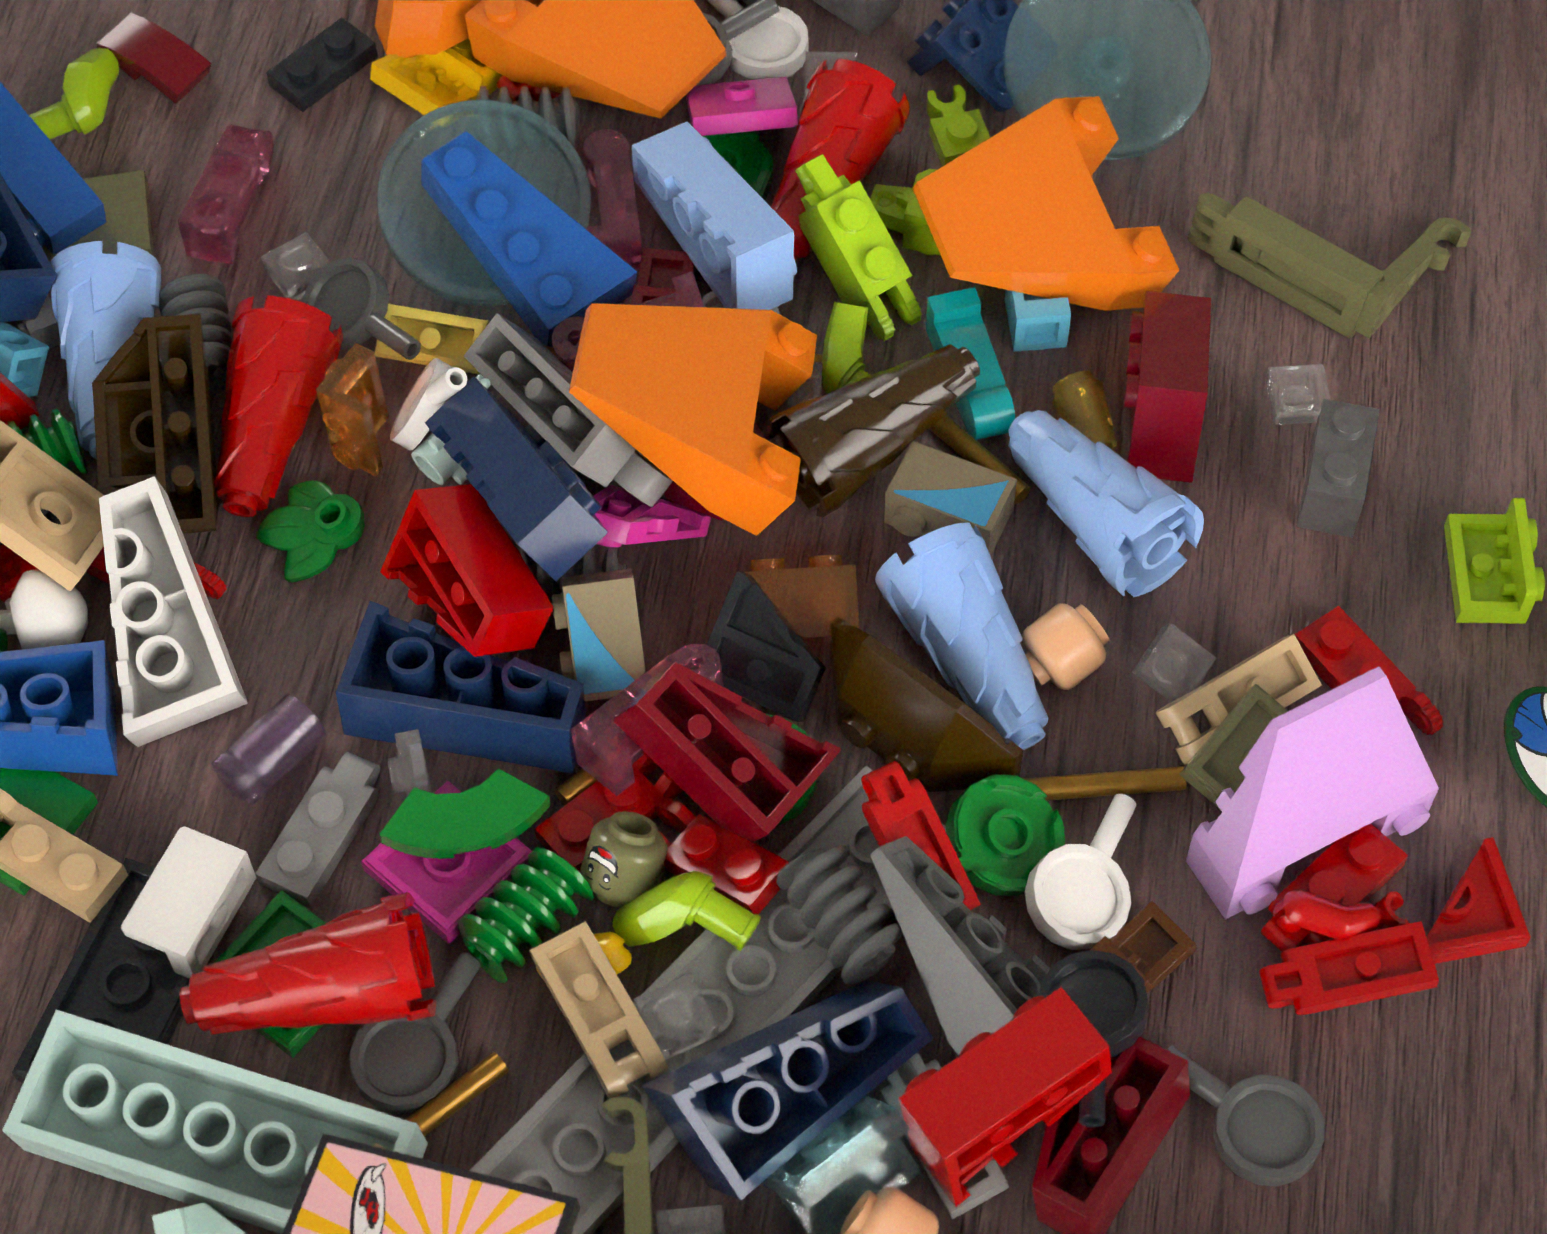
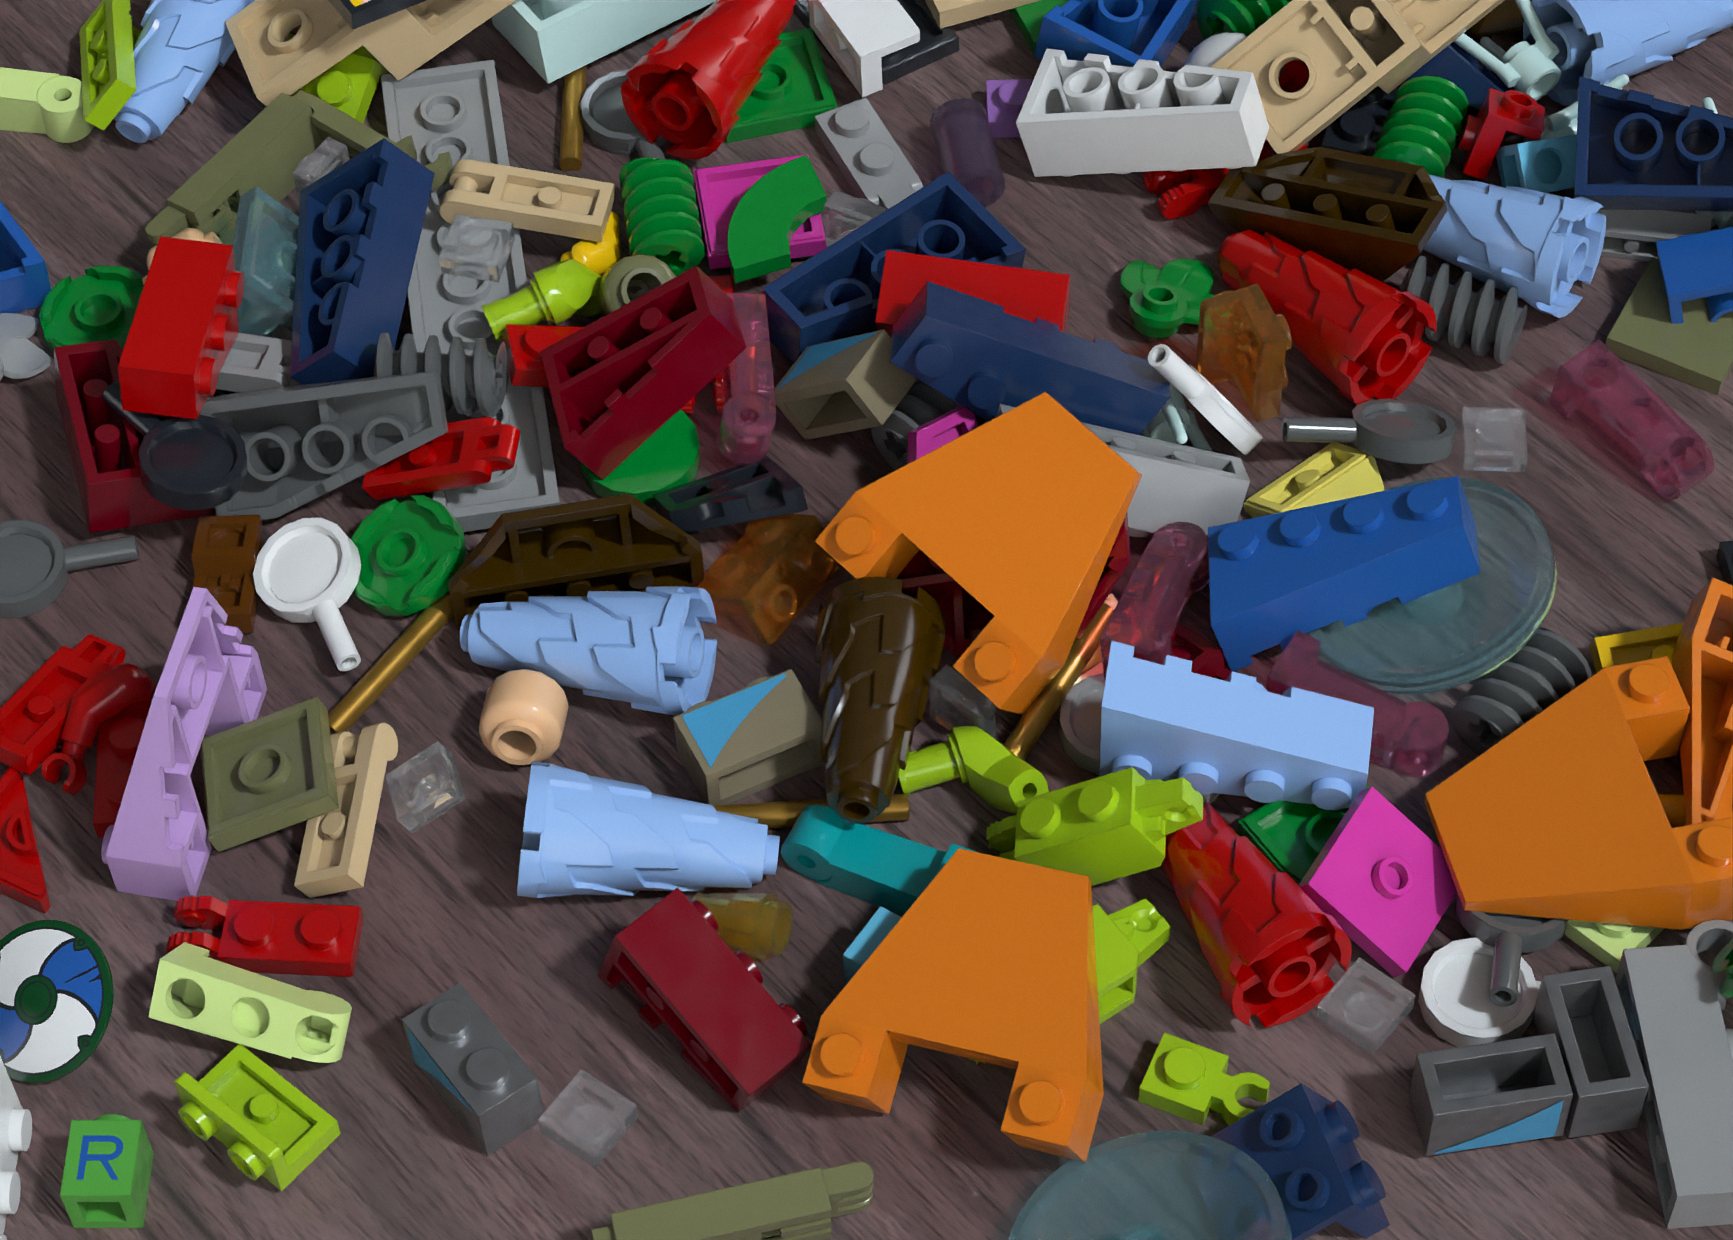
camera: 130 degrees right, 5 degrees down
(177, 766) = (1004, 105): none -> medium lavender plate
(1439, 625) = (248, 1007): none -> yellowish green leg

